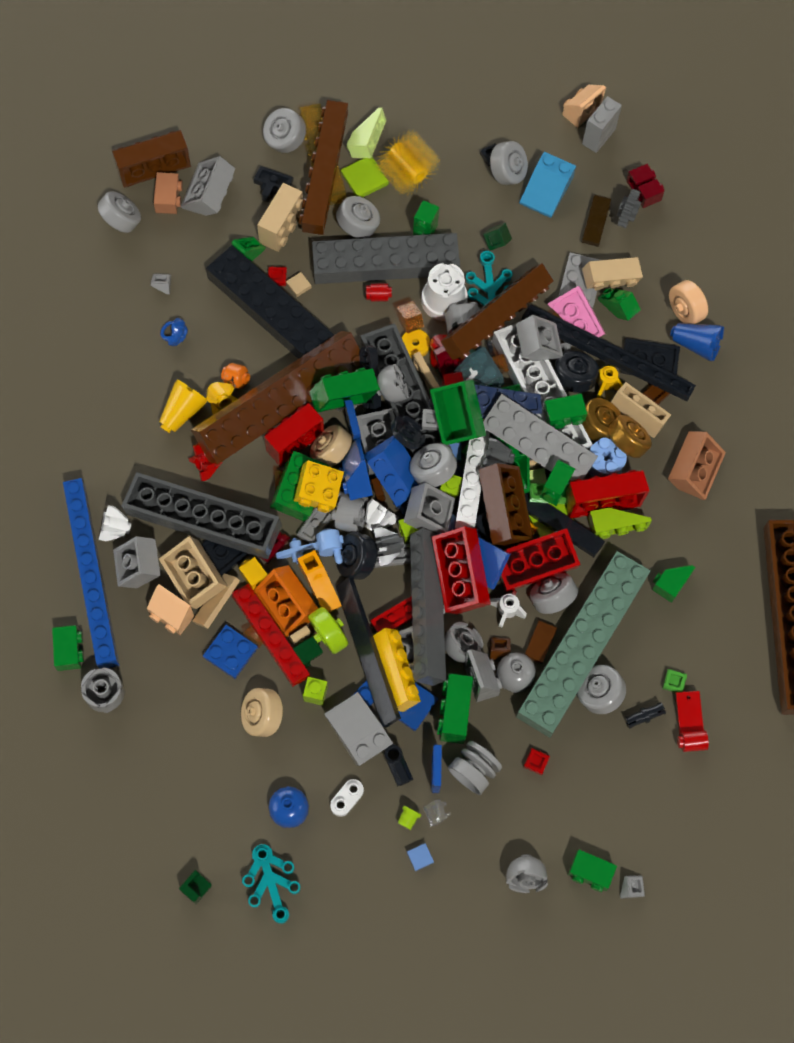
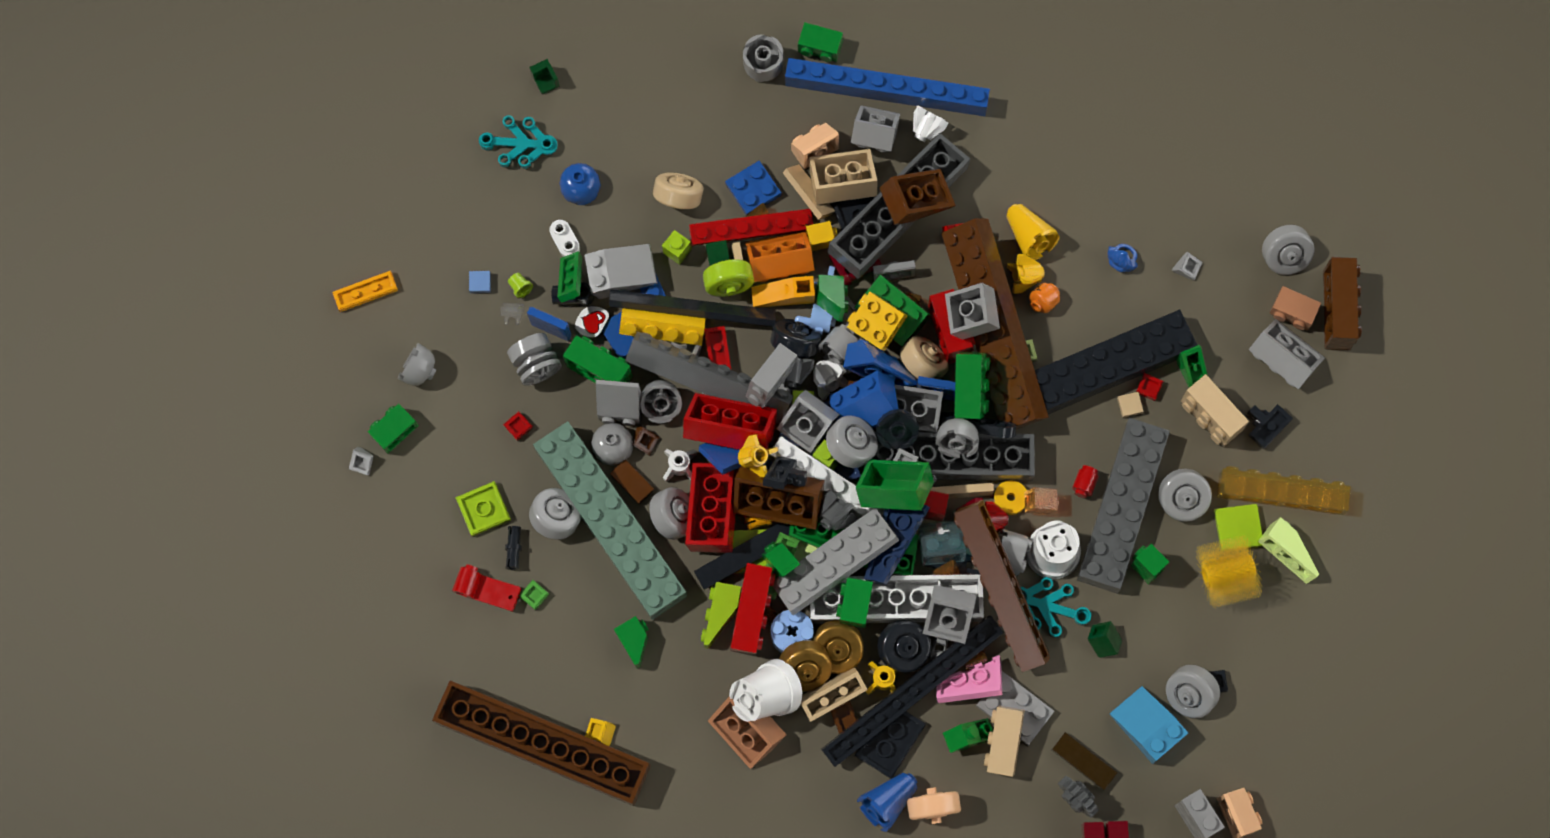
camera: 120 degrees right, 5 degrees up
(193, 495) = (916, 195): none -> reddish brown slope
(259, 501) = (895, 270): none -> light grey plate
(283, 405) = (972, 311): none -> light grey brick
(284, 130) = (1327, 459): light grey wheel -> none
(309, 535) = (832, 294): none -> green slope
(324, 168) = (1257, 478): reddish brown brick -> none
(385, 769) = (570, 277): none -> green plate
(410, 543) = (771, 376): none -> light grey brick
(414, 738) = (591, 321): none -> sticker
(475, 962) = (365, 291): none -> light orange tile
(486, 529) = (754, 456): none -> yellow brick
(491, 500) = (783, 472): none -> black hinge
(623, 758) = (483, 508): none -> lime tile
(668, 451) = (767, 692): none -> white piece
(757, 579) = (600, 731): none -> yellow slope

